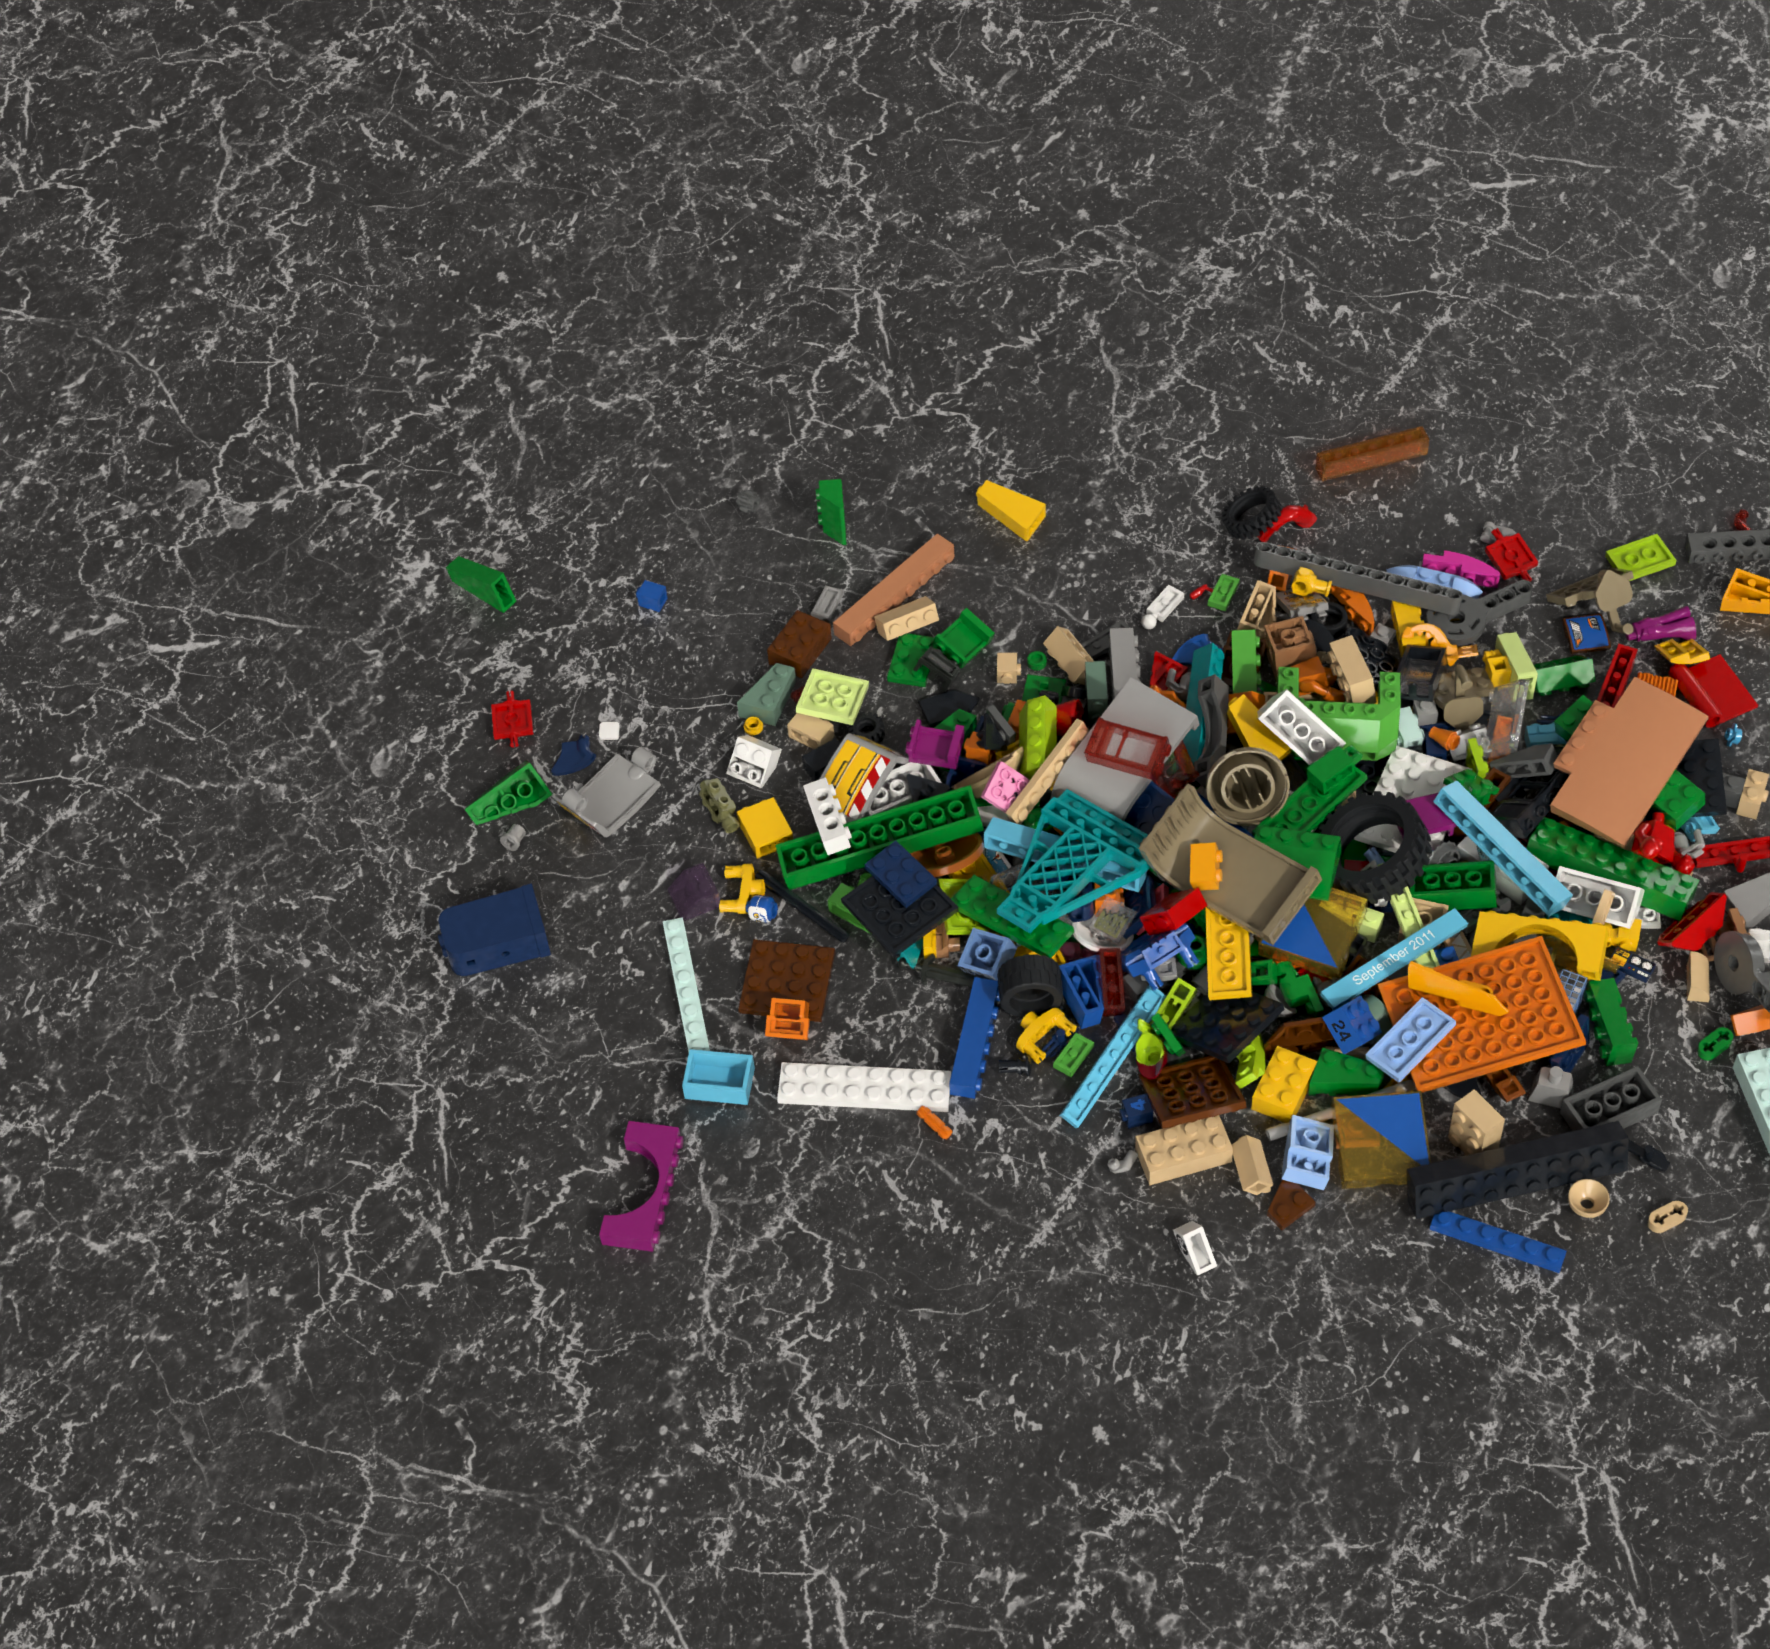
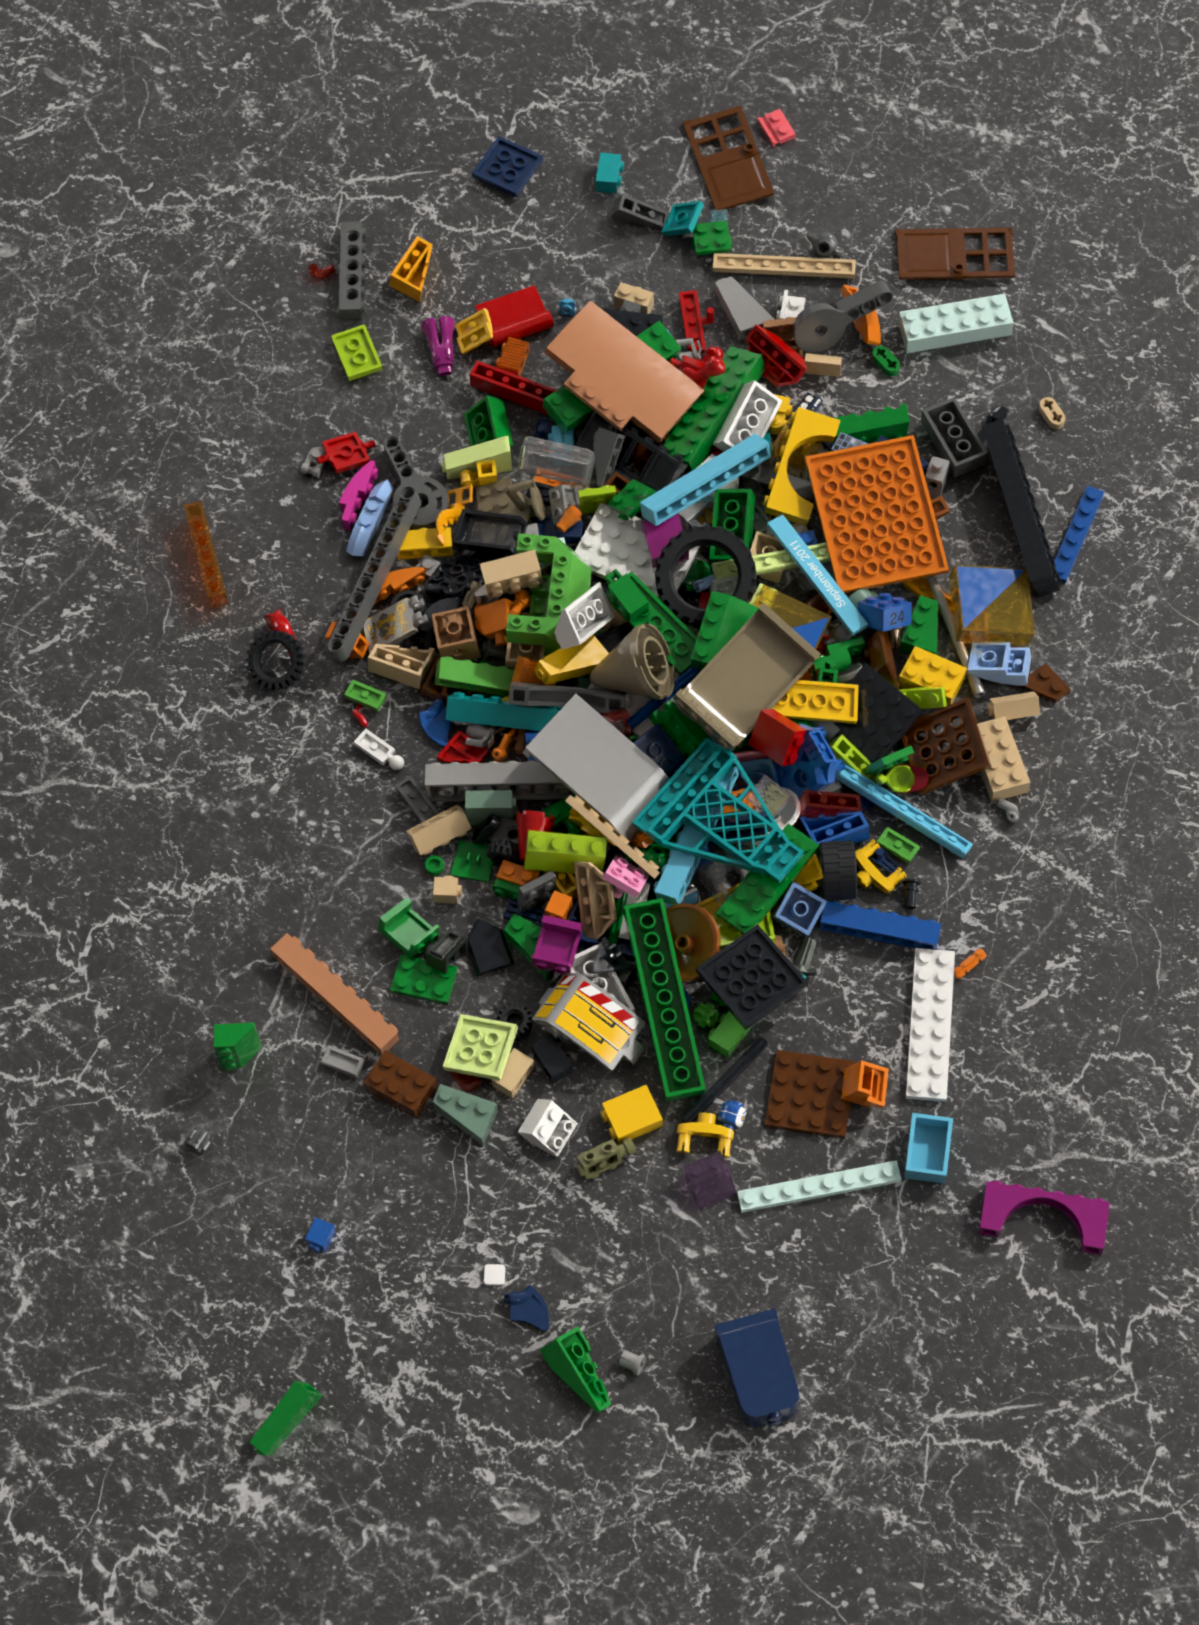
camera: 90 degrees left, 10 degrees up
(512, 719) = (476, 1373): red plate -> none
(613, 792) = (581, 1266): light grey panel -> none
(753, 726) = (500, 1125): yellow plate -> none
(827, 817) = (638, 1050): white brick -> none
(900, 874) = (723, 971): dark blue plate -> none
(906, 618) = (378, 980): tan brick -> none
(990, 737) = (559, 890): black piece -> none
(1011, 508) = (237, 881): yellow slope -> none
(1127, 749) = (608, 755): clear red door -> none
(1136, 1111) = (958, 795): dark blue brick -> none
(1195, 1247) = (1093, 755): white slope -> none
(1205, 865) = (737, 703): light orange brick -> none
(1306, 583) = (376, 616): yellow connector -> none
(1410, 1039) = (904, 567): light blue plate -> none
(1464, 992) = (850, 546): light orange panel -> none
(1475, 1125) = (985, 530): tan brick -> none
(1586, 633) = (441, 404): slope -> none
(1588, 1190) = (1042, 457): tan piece -> none
(1604, 907) = (770, 414): tan tile -> none
(1608, 587) = (396, 385): dark tan plate -> none

